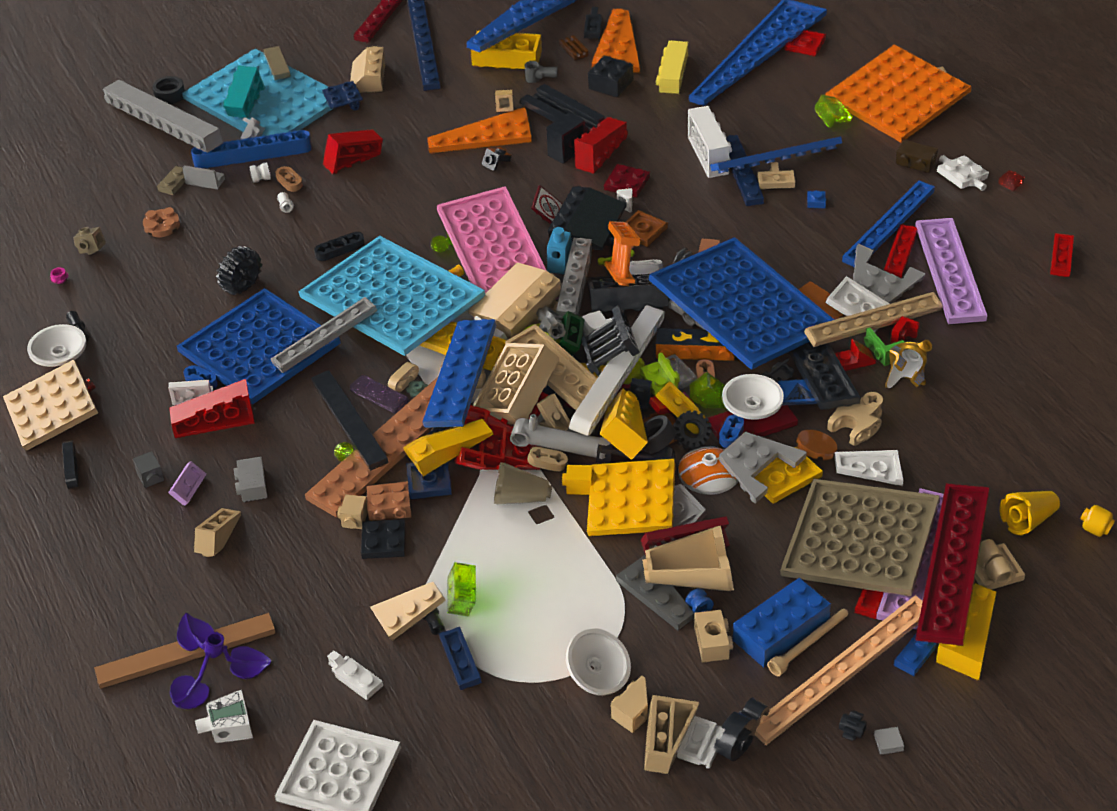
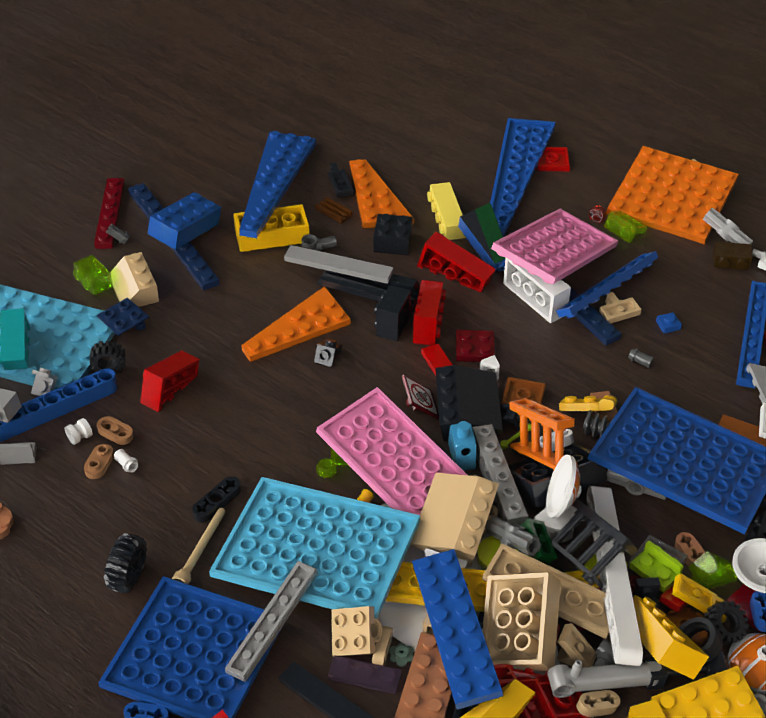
camera: 25 degrees left, 0 degrees up
(264, 198) = (99, 458): none -> medium nougat plate
(276, 63) = (29, 295): dark tan tile -> none
(281, 292) = (184, 575): none -> tan piece
(313, 116) = (107, 350): none -> black tyre
(337, 59) = (92, 275): none -> clear neon green brick
(376, 30) = (117, 233): none -> dark grey pin
(383, 358) = (355, 631): none -> tan plate
(434, 29) = (184, 220): none -> blue brick
(504, 100) = (301, 285): tan brick -> none
(543, 89) = (338, 264): none -> light grey tile
(586, 179) = (435, 357): none -> red tile
(610, 294) = (563, 487): none -> white dish
(649, 109) = (455, 263): none -> red wedge
(687, 88) = (481, 231): none -> slope
(691, 243) = (589, 403): none -> yellow hinge
(691, 345) = (657, 519): brick -> none
(742, 110) = (554, 246): none -> bright pink plate
(765, 218) = (640, 357): none -> dark grey pin
(812, 96) = (597, 214): none -> clear red tile
(924, 130) = (726, 228): none -> light grey piece

